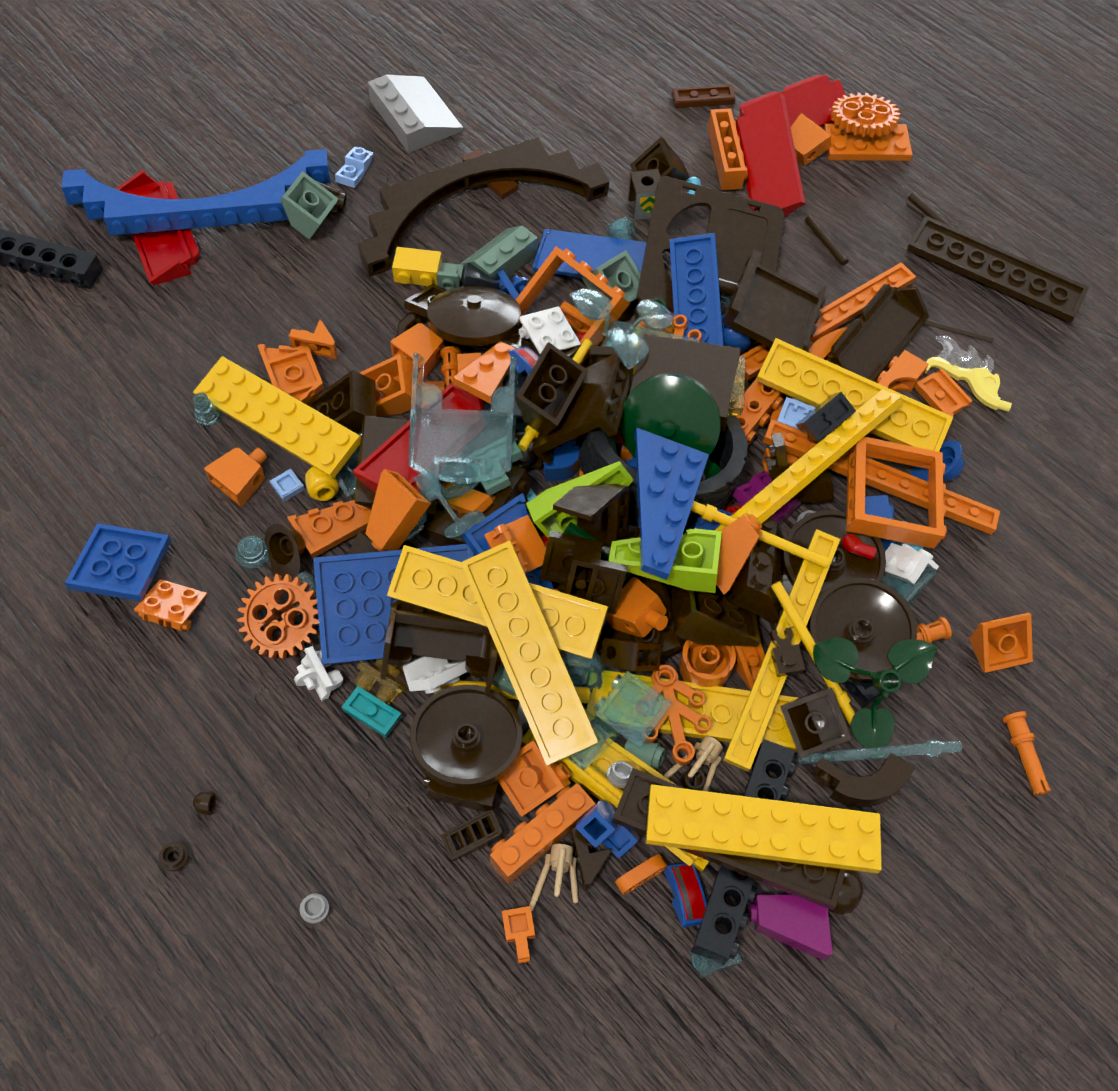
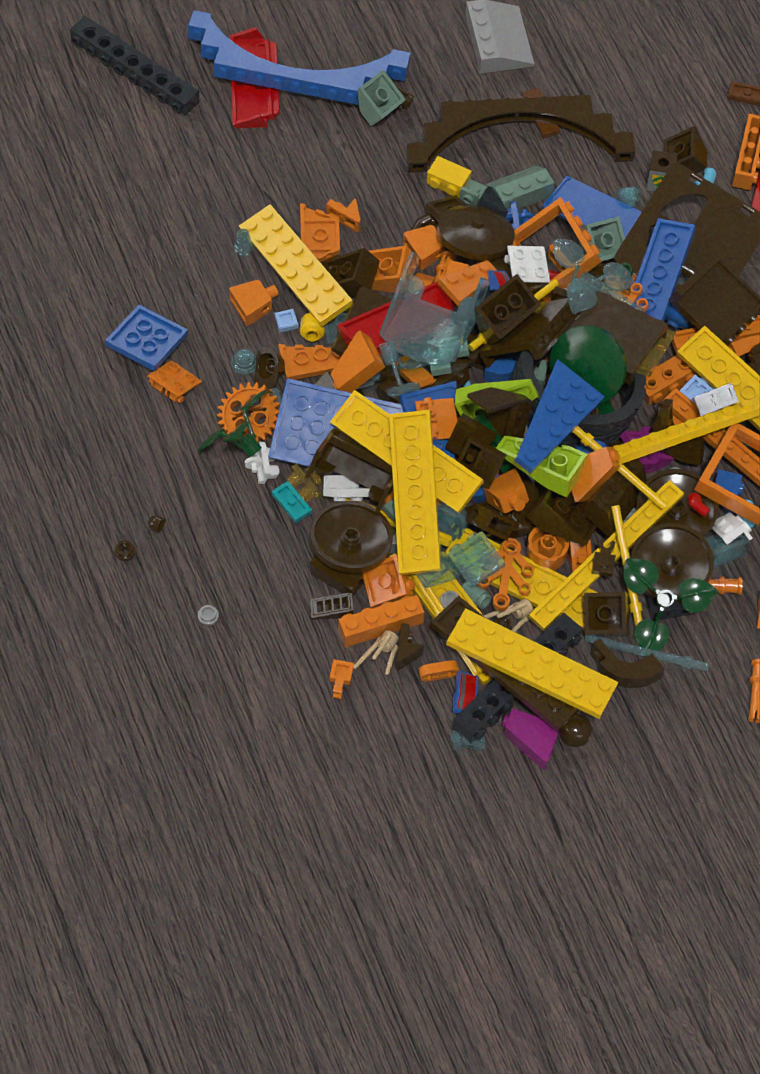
camera: 20 degrees right, 0 degrees up
(286, 656) = (247, 442): none -> dark green plant
(355, 167) = (430, 74): light blue slope -> none
(599, 828) = (419, 627): blue brick -> none

